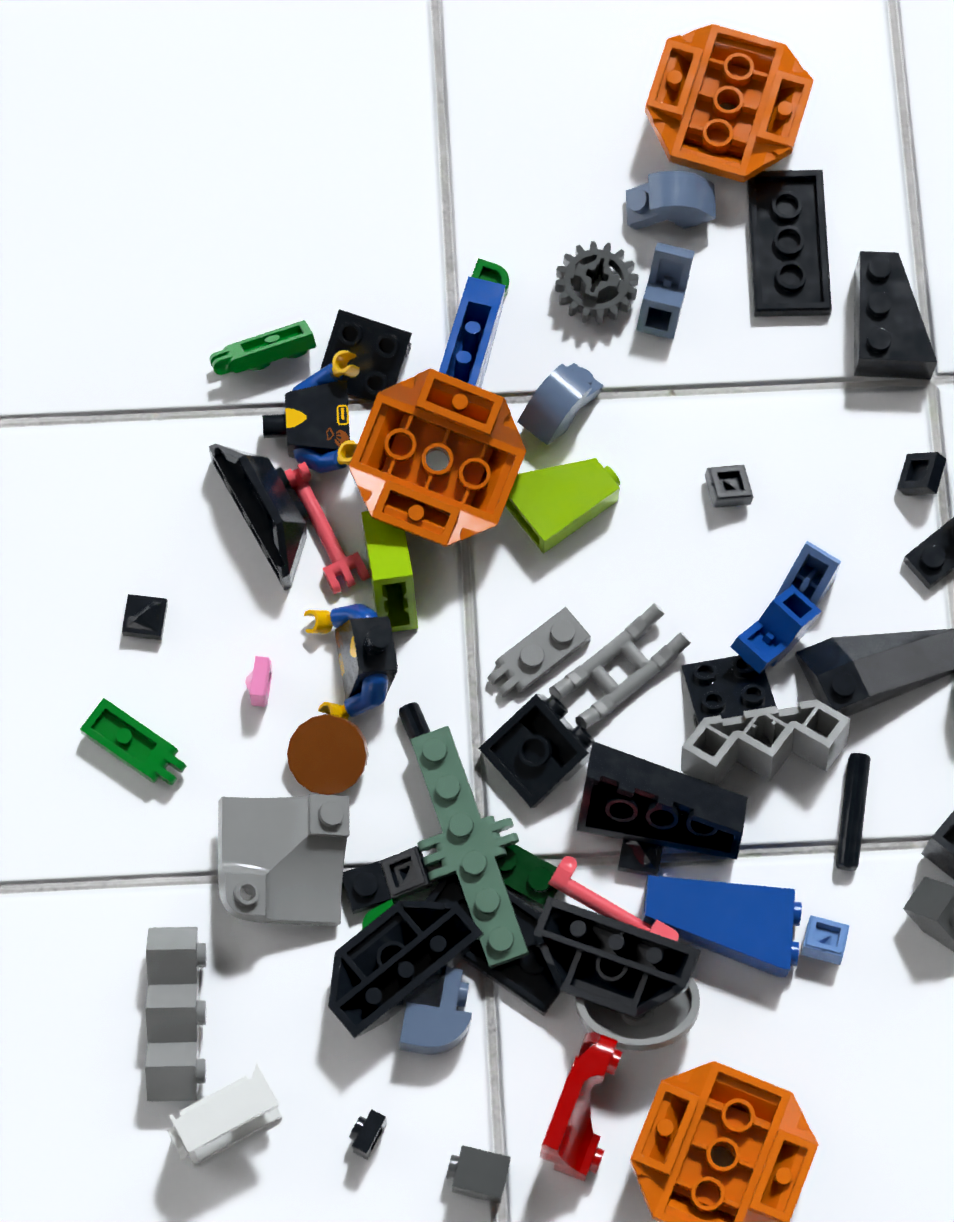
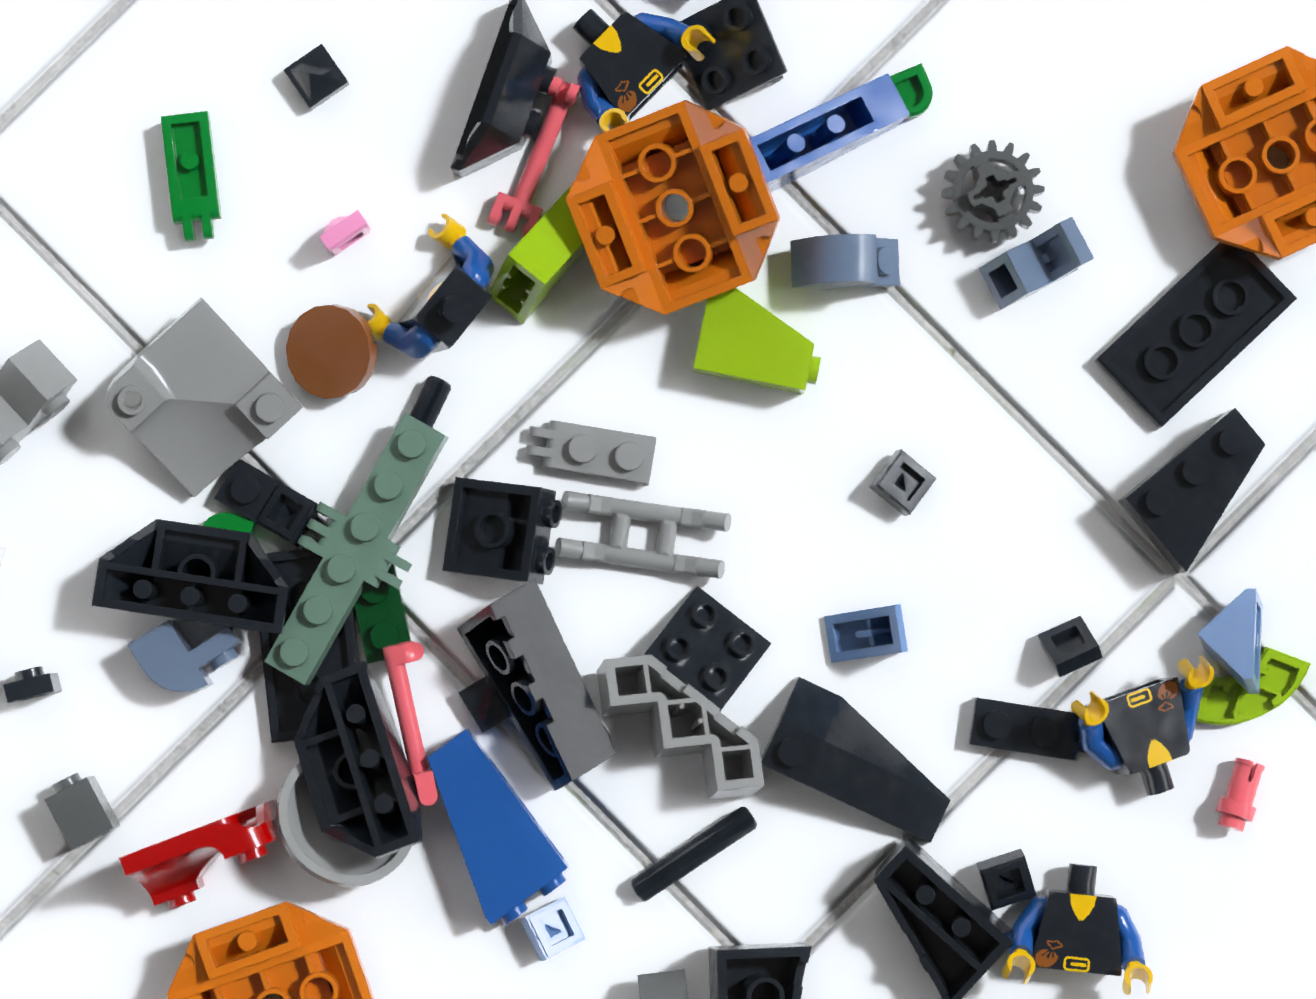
camera: 50 degrees right, 15 degrees up
(671, 196) = (1136, 188): sand blue brick -> none
(776, 630) = (795, 645): blue brick -> none

